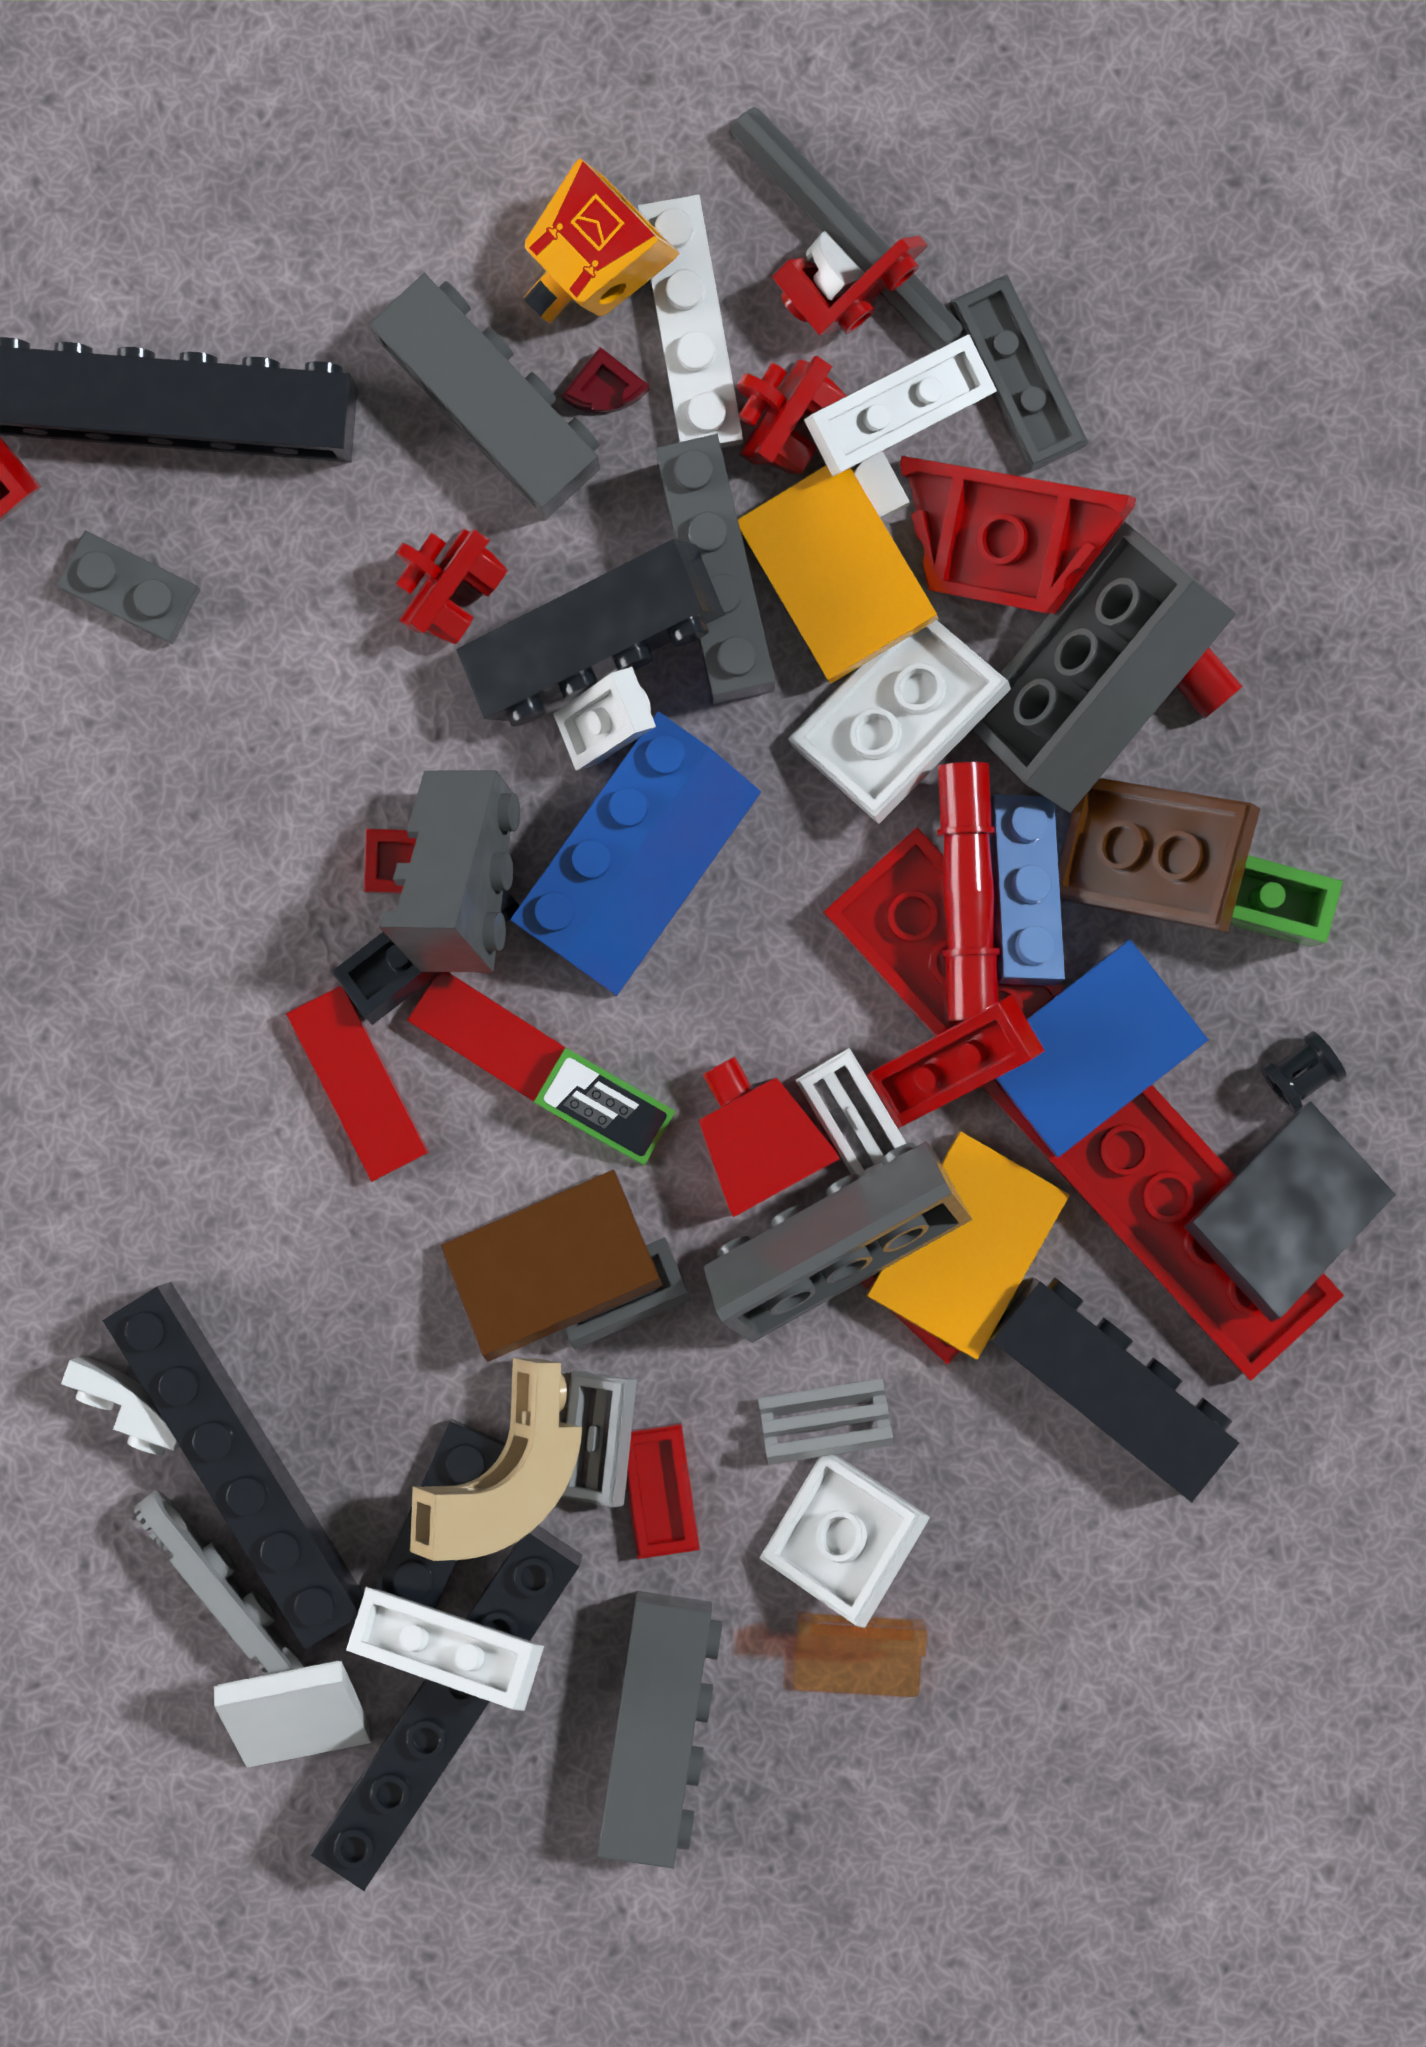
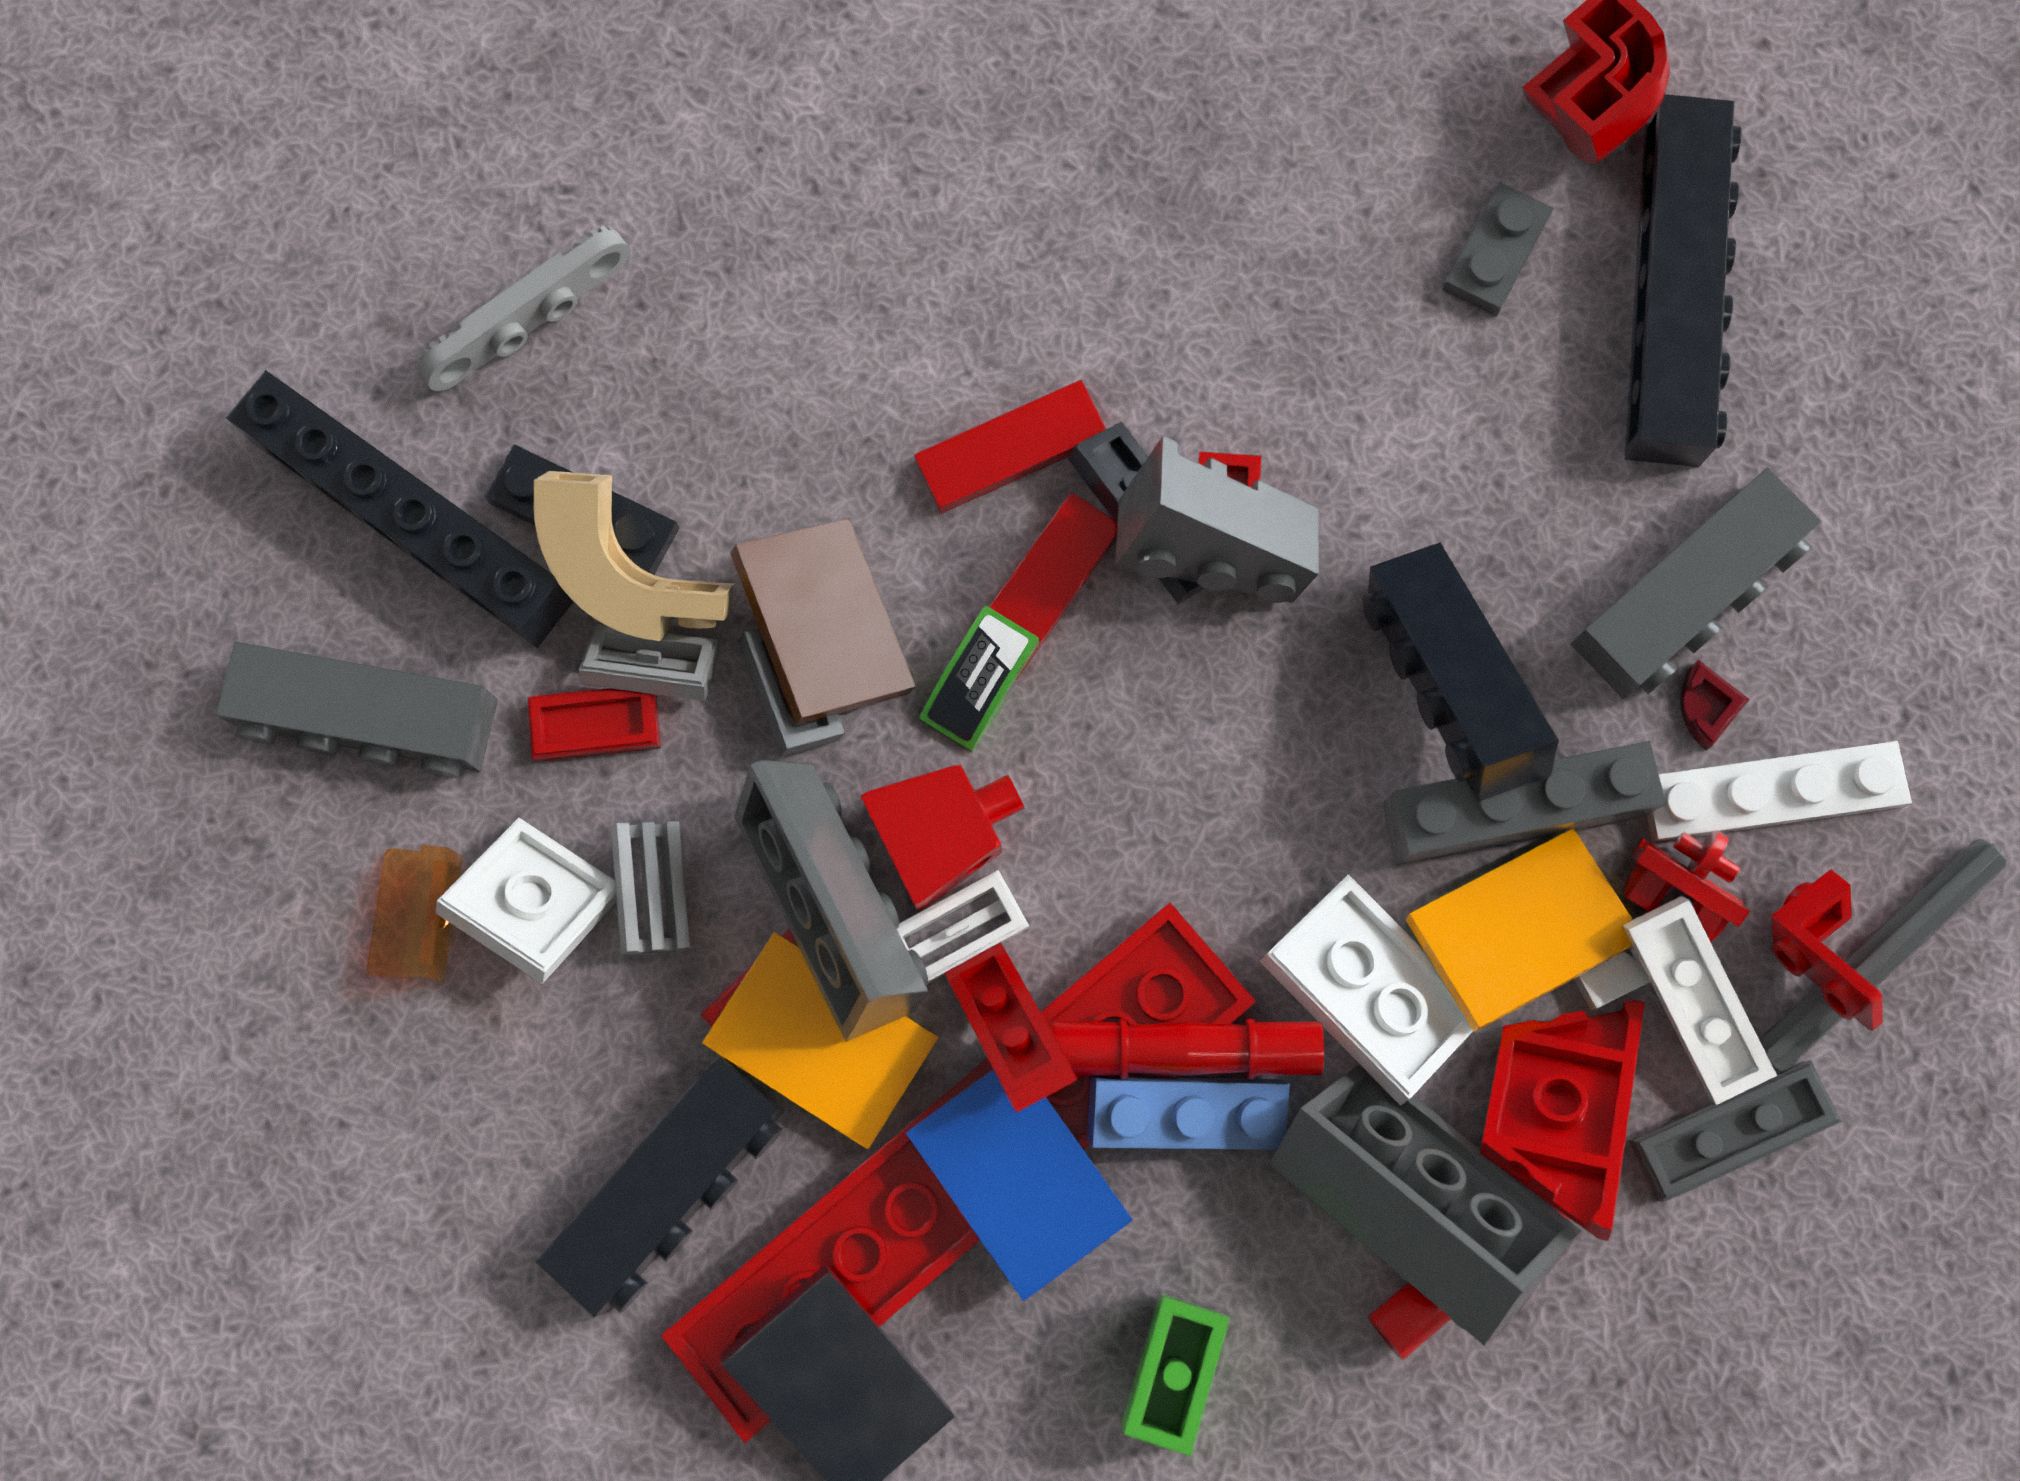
camera: 95 degrees right, 10 degrees down
(138, 1417) = (706, 236): white slope -> none
(236, 1463) = (647, 320): black brick -> none
(292, 1714) = (404, 361): white tile -> none
(445, 1648) = (447, 494): white plate -> none
(463, 561) = (1528, 560): red hips -> none
(592, 247) = (1854, 690): torso -> none
(604, 718) = (1371, 685): white plate -> none
(636, 854) = (1231, 715): blue slope -> none
(835, 266) = (1846, 933): white tile -> none
(1157, 853) = (1224, 1254): reddish brown tile -> none
(1313, 1053) = (1006, 1420): black bush -> none

